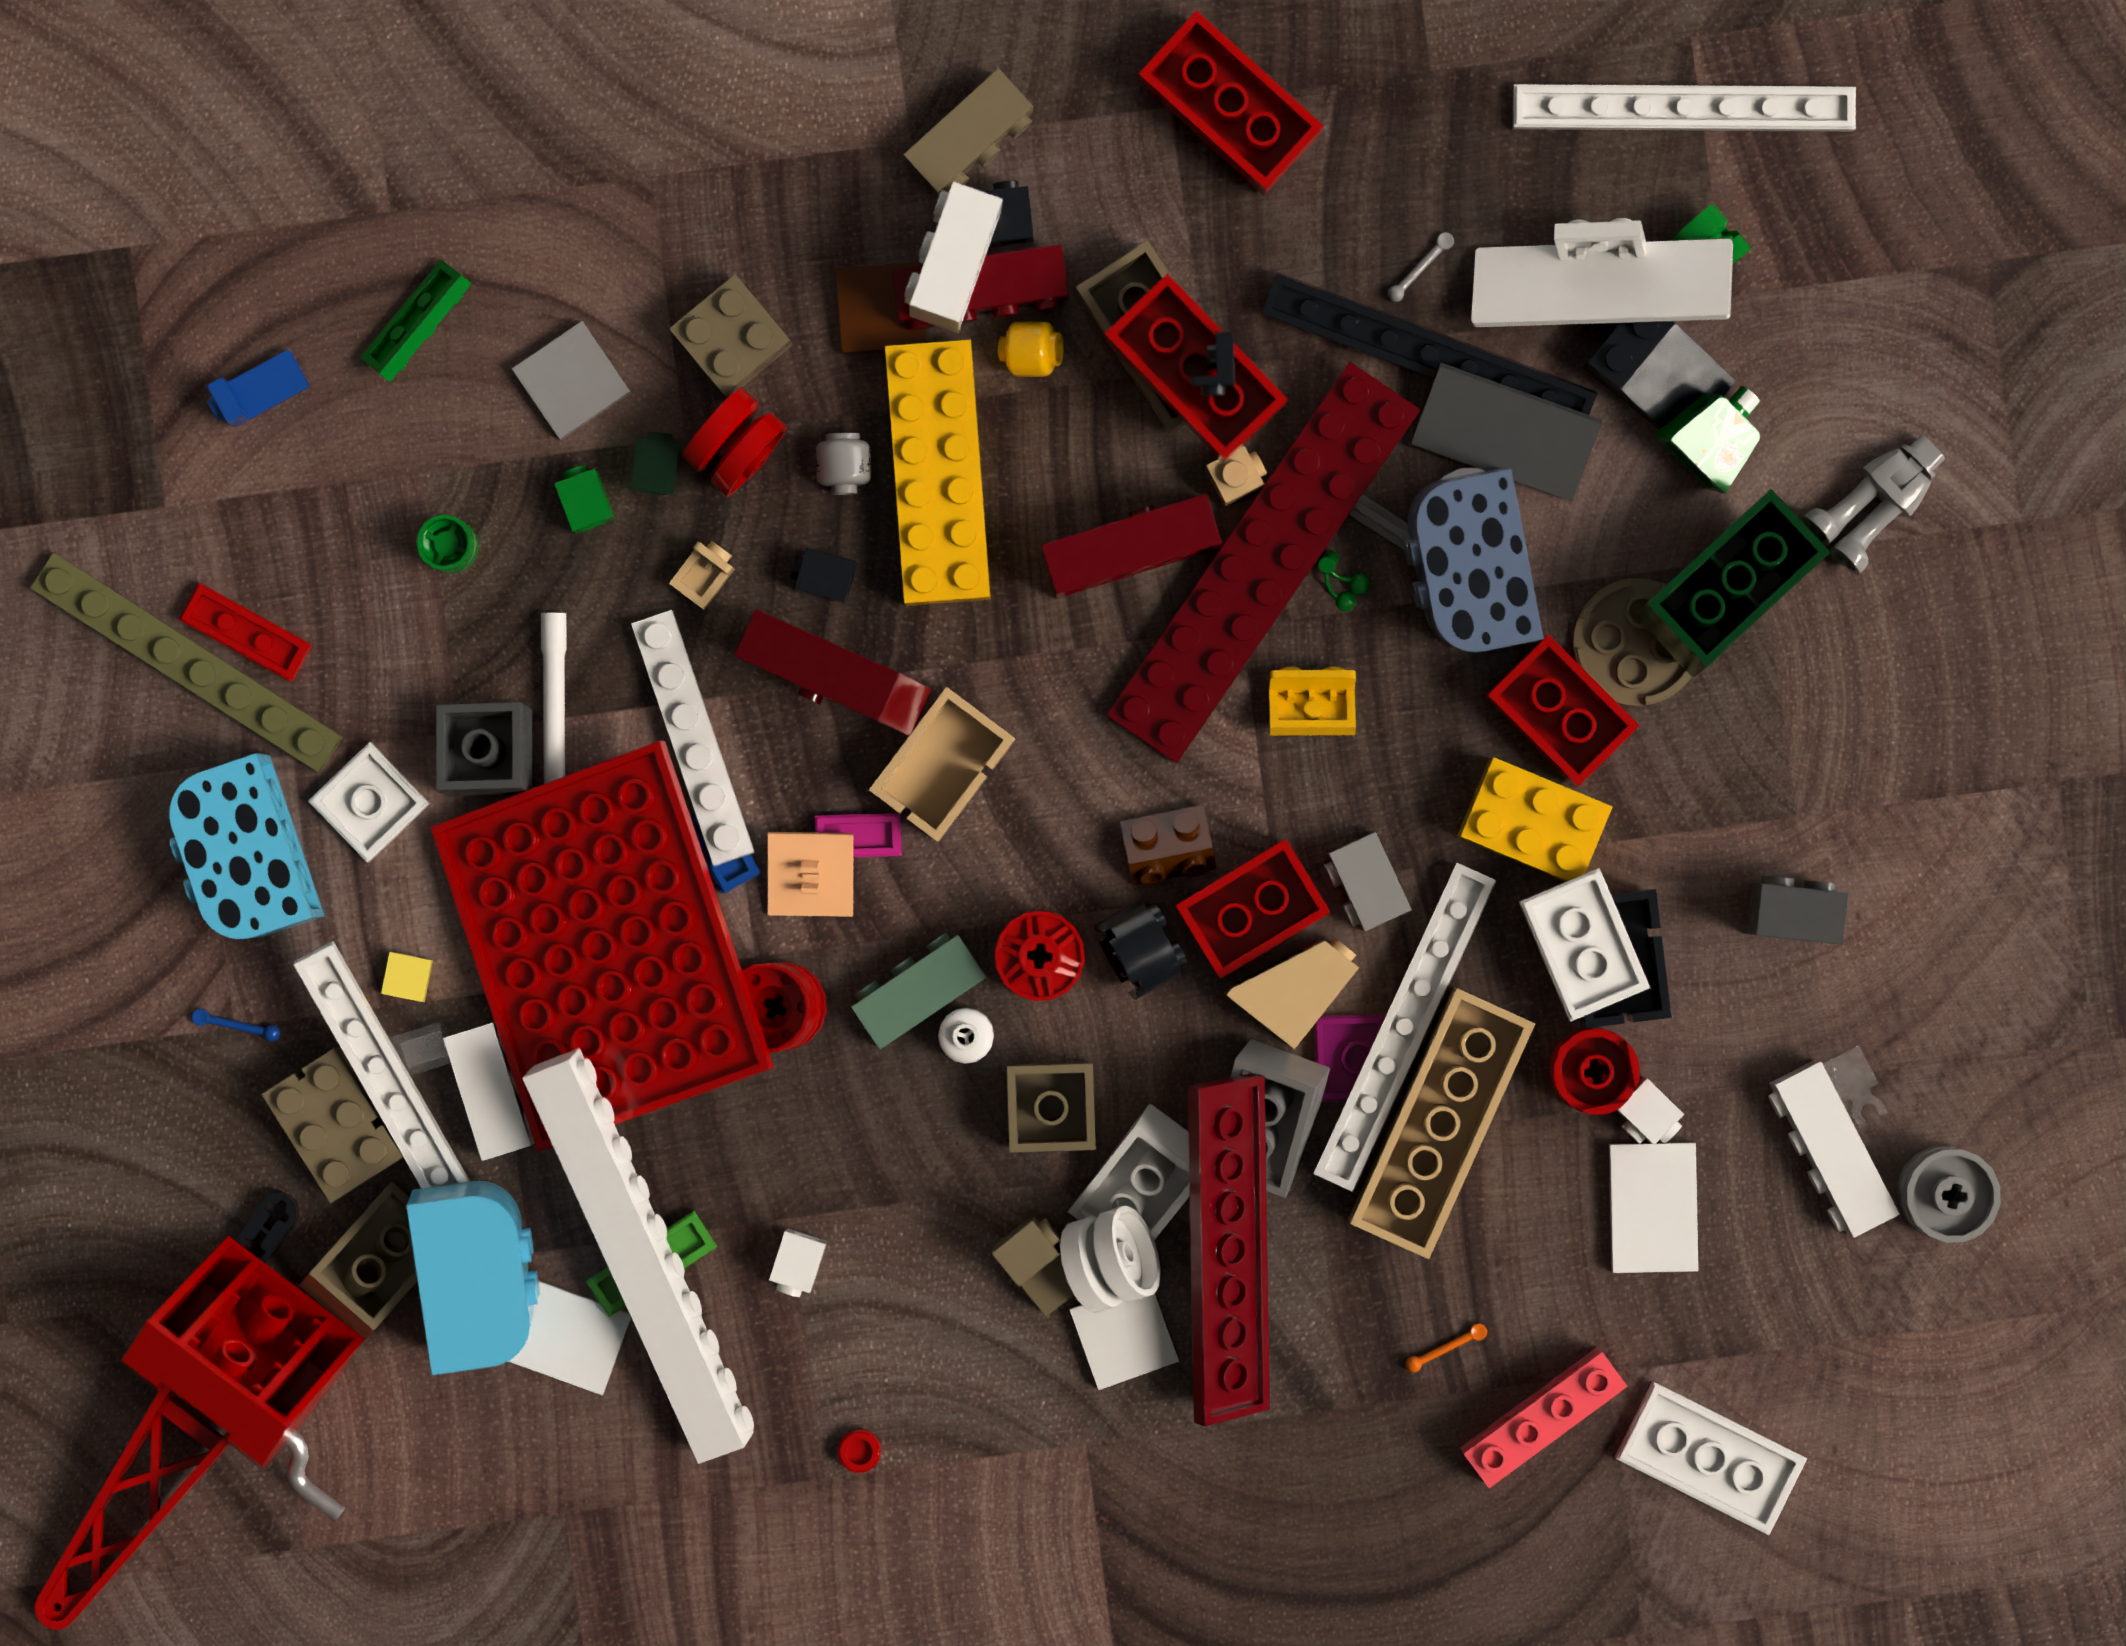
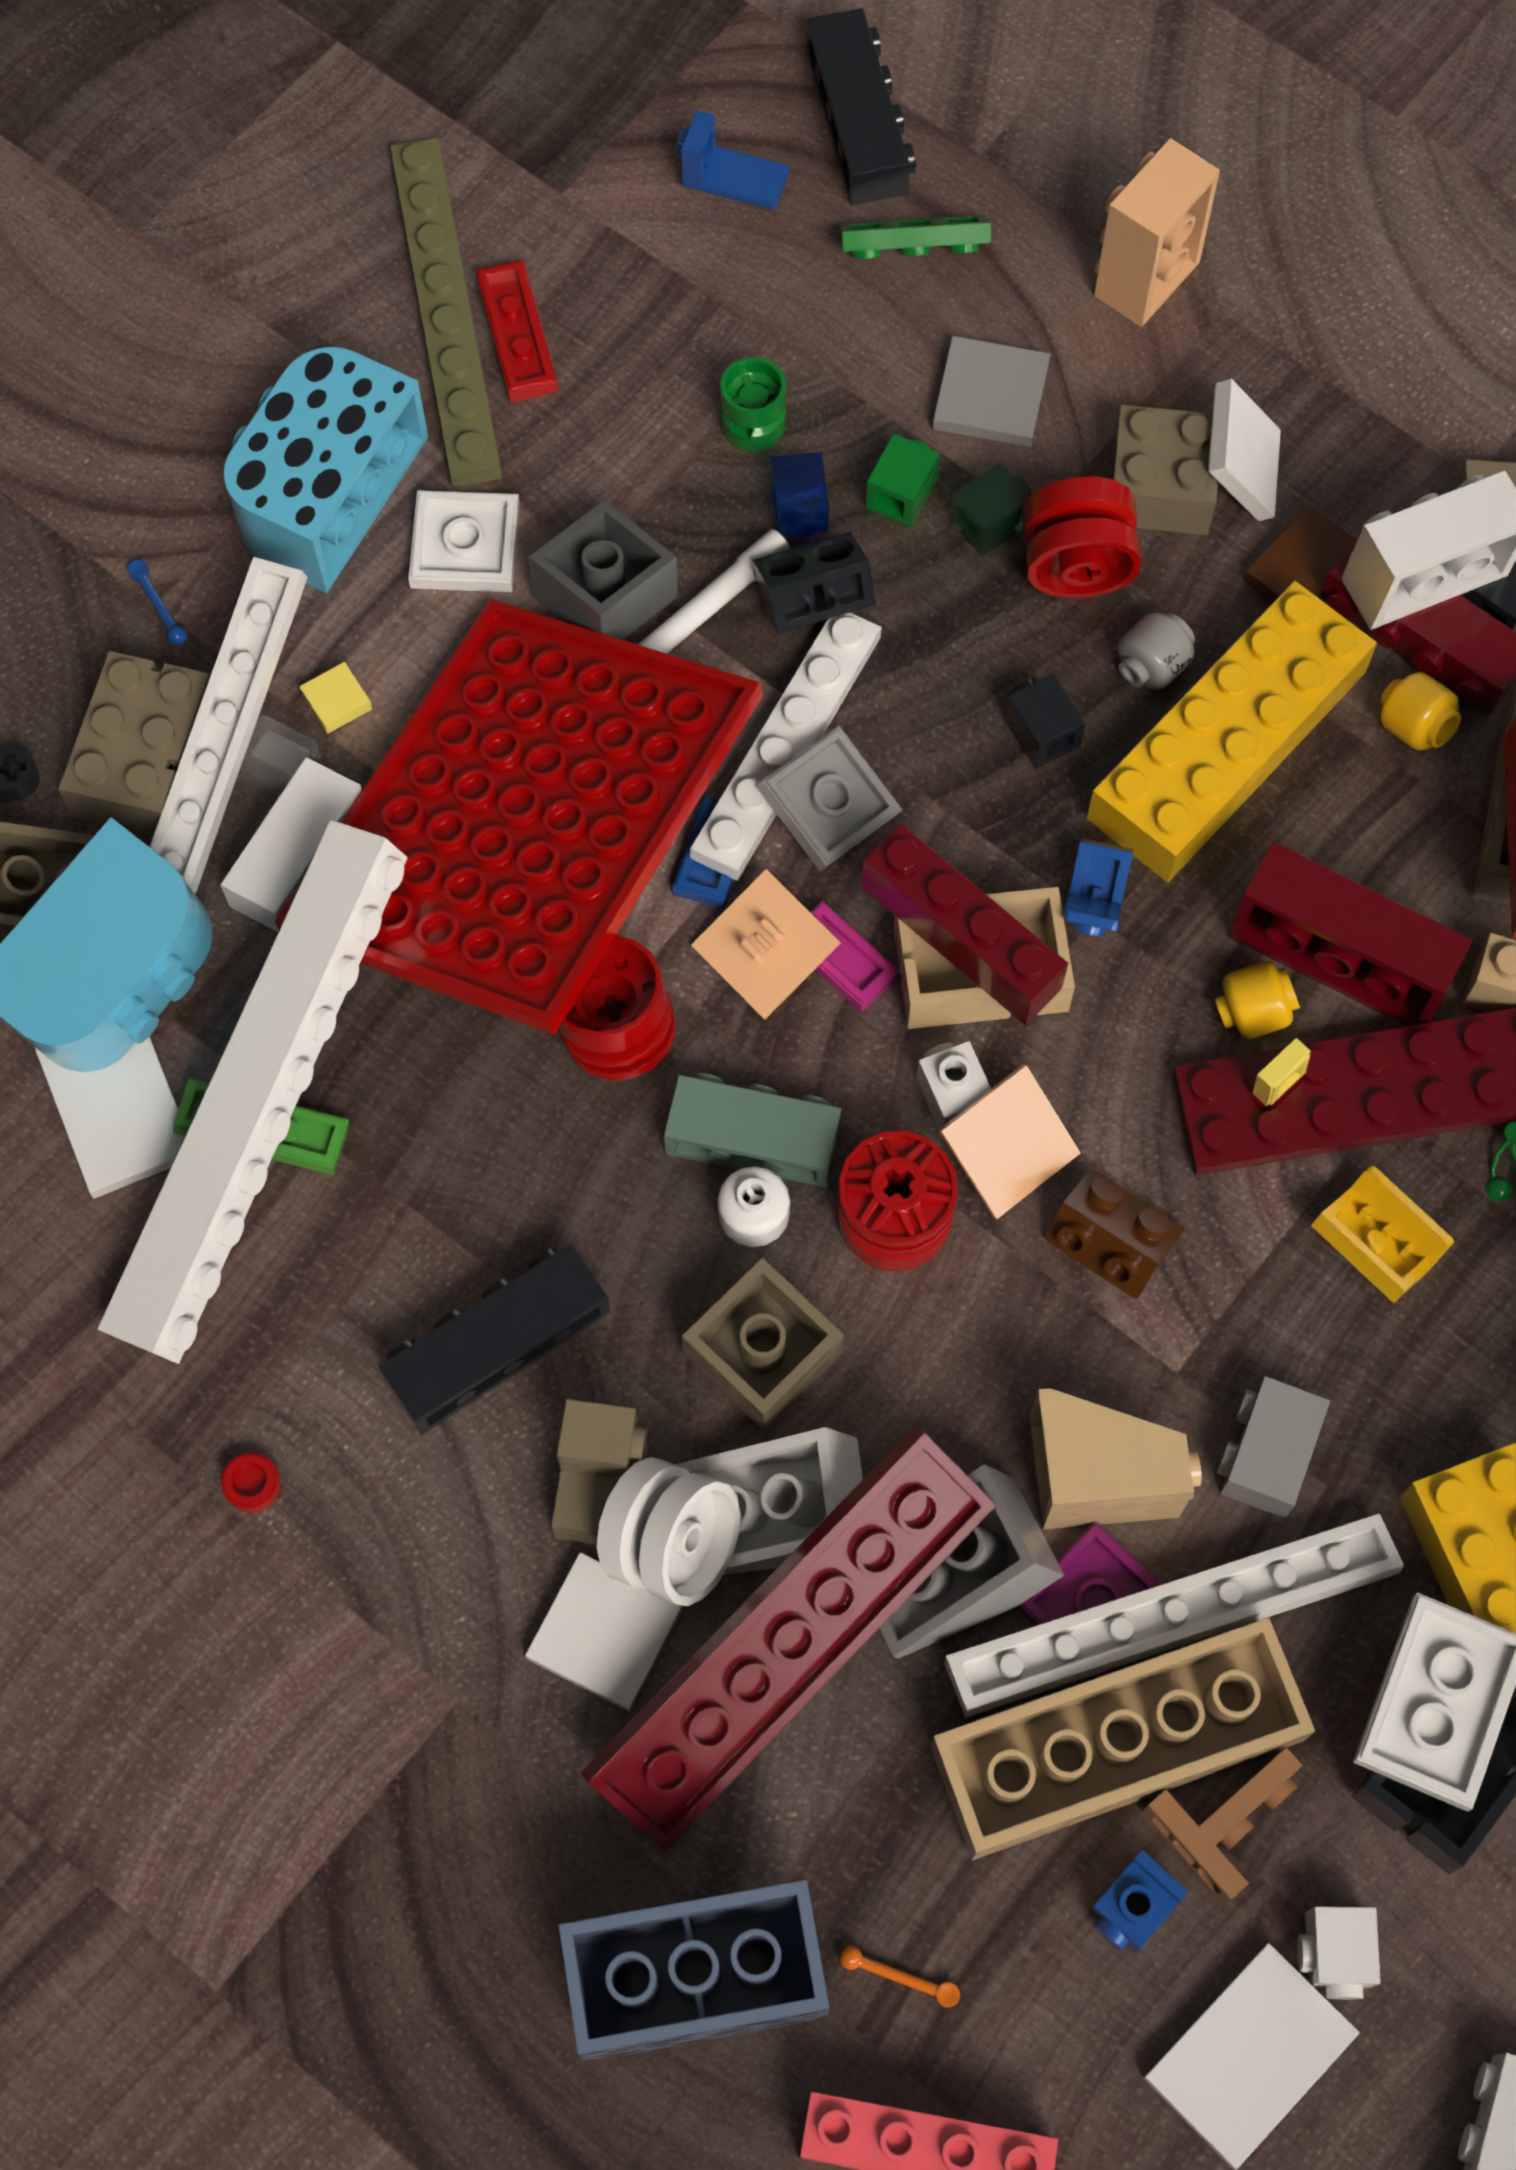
camera: 45 degrees right, 20 degrees down
(285, 262) = (859, 107): none -> black brick
(536, 574) = (800, 494): none -> clear blue brick
(573, 190) = (1155, 231): none -> light nougat brick
(612, 629) = (814, 582): none -> black brick
(703, 573) = (941, 623): tan bracket -> none
(756, 752) = (829, 798): none -> light grey tile
(768, 280) = (1244, 450): none -> white tile
(797, 1262) = (386, 1252): white brick -> none
(832, 672) = (971, 778): dark red brick -> none
(905, 1247) = (495, 1337): none -> black brick
(923, 772) = (963, 924): none -> dark red brick
(964, 658) = (1097, 887): none -> blue bracket
(1000, 852) = (950, 1080): none -> white brick
(1063, 855) = (1009, 1141): none -> light nougat piece
(1114, 629) = (1257, 1000): none -> yellow head
(1140, 948) = (995, 1286): black brick -> none
(1174, 671) = (1282, 1072): none -> light yellow tile
(1252, 908) = (1141, 1354): red brick -> none
(1351, 1460) = (693, 1971): none -> sand blue brick
(1519, 1179) = (1155, 1885): none -> blue brick
(1533, 1107) = (1227, 1825): none -> medium nougat bracket
(1613, 1086) = (1360, 1841): red brick -> none

